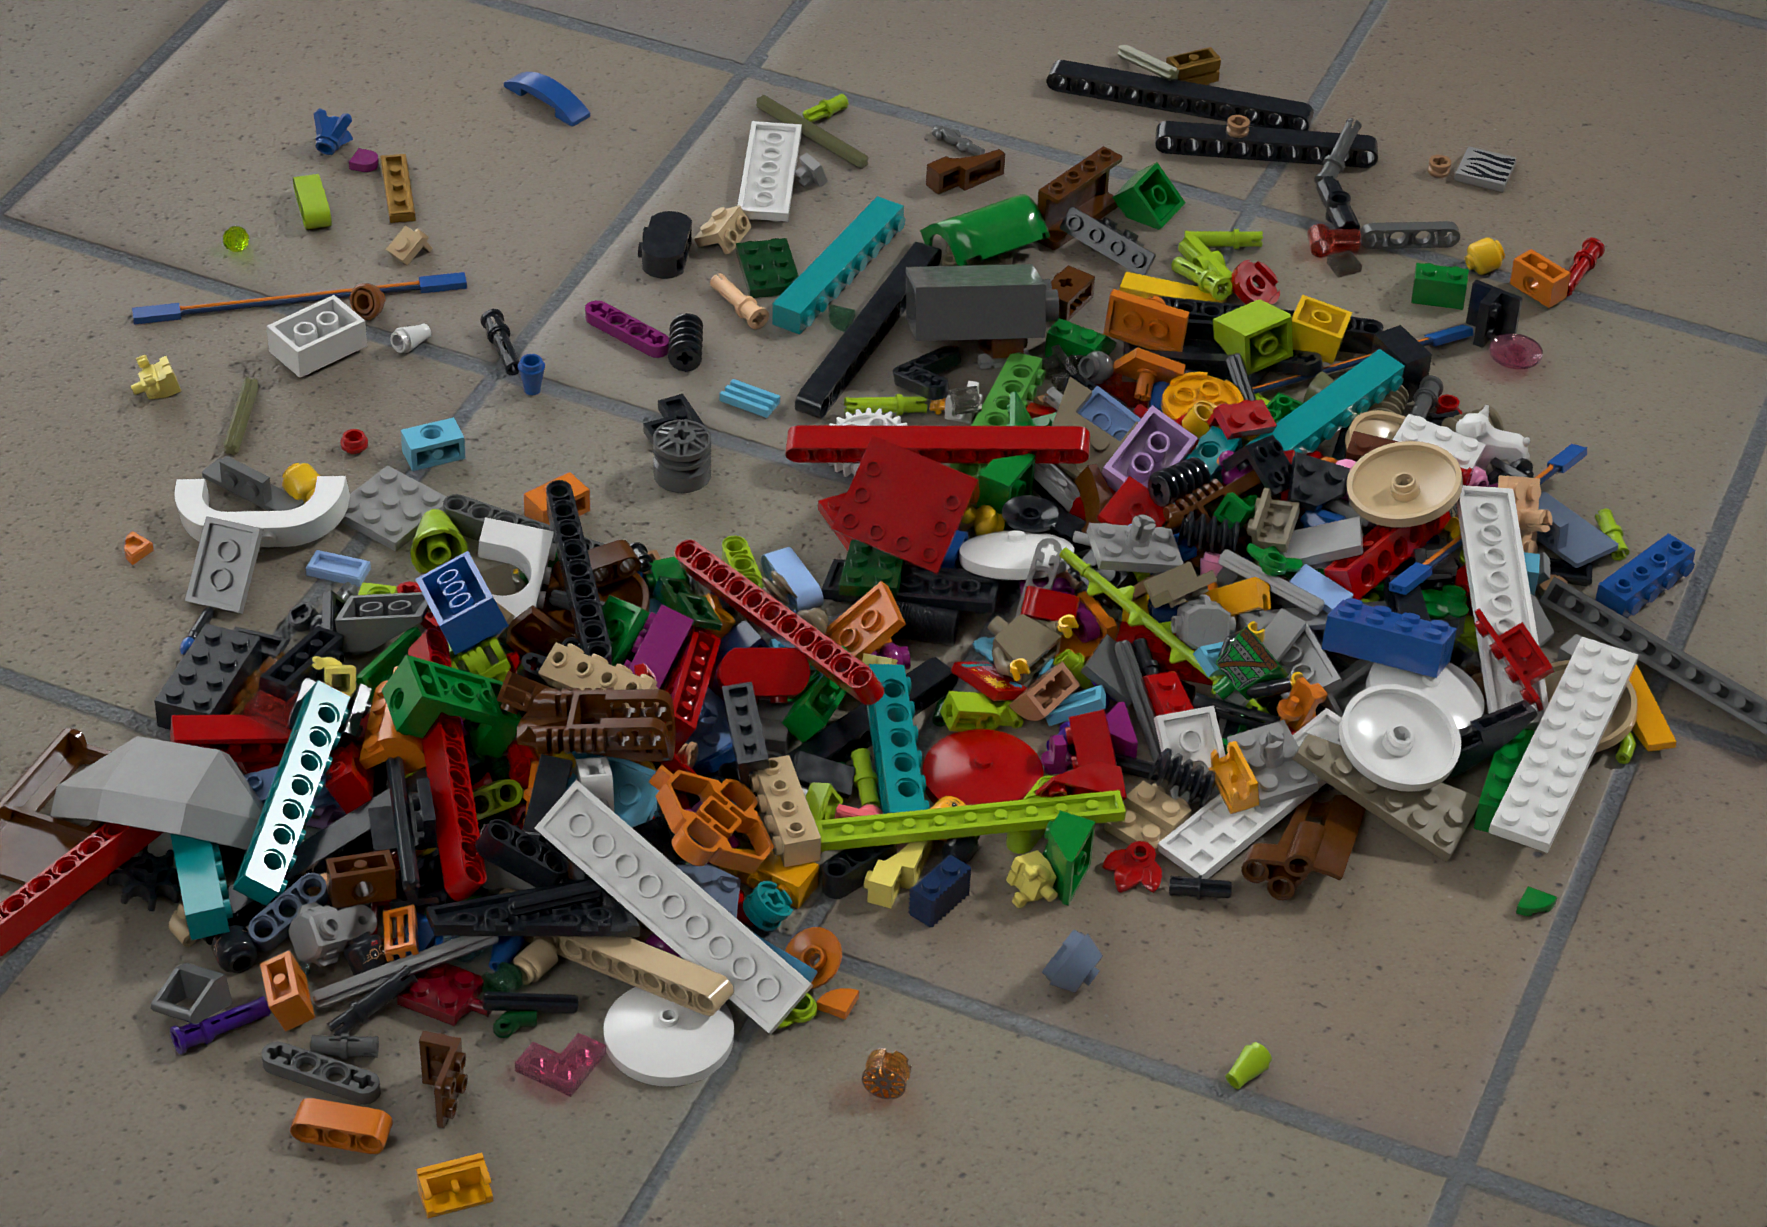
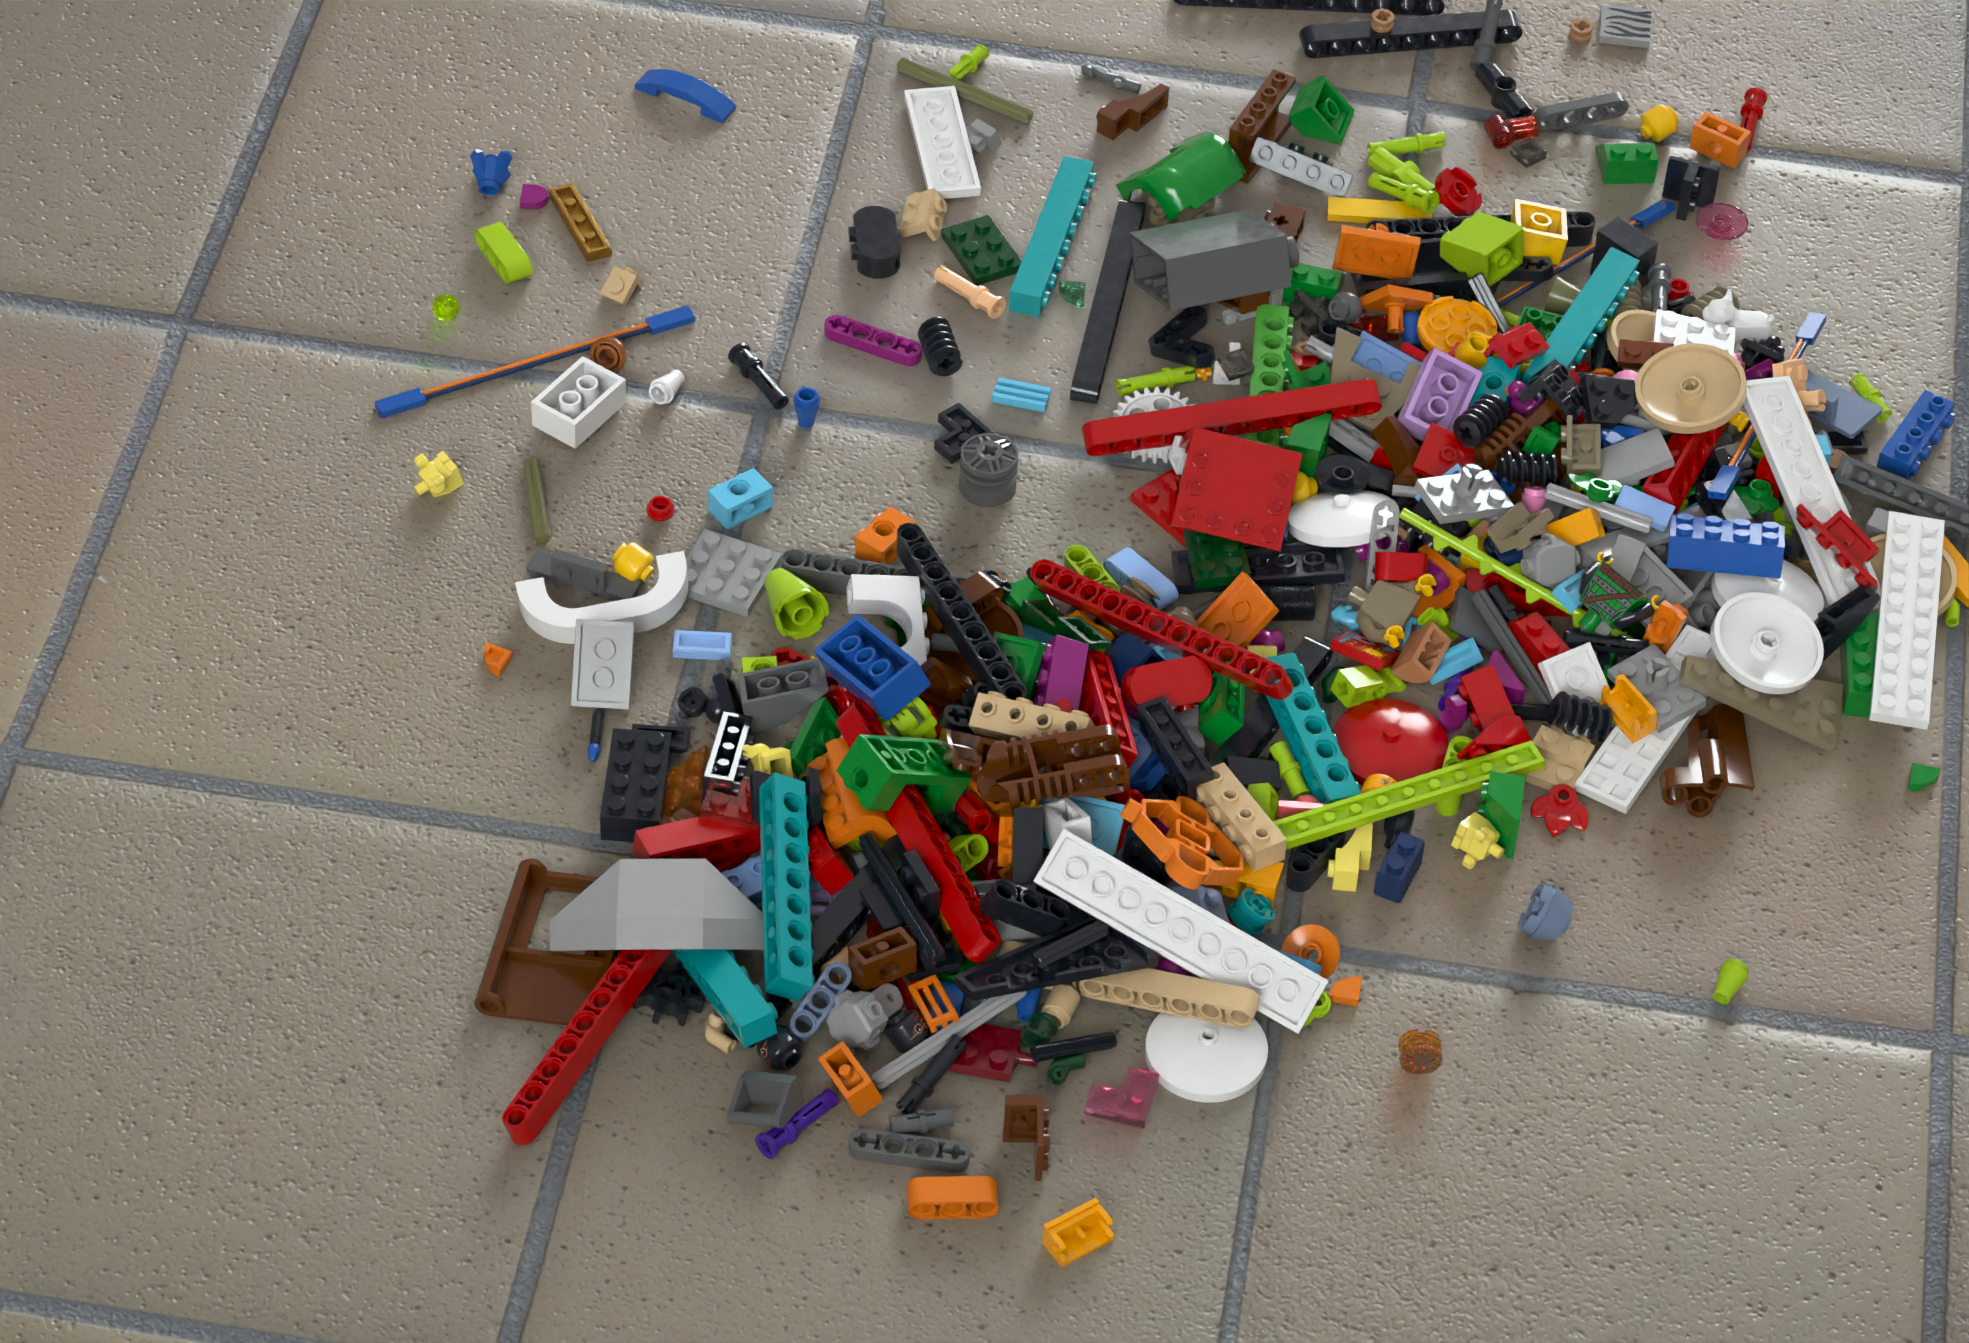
camera: 15 degrees left, 5 degrees up
(1199, 887) = (1625, 819): black axle -> none

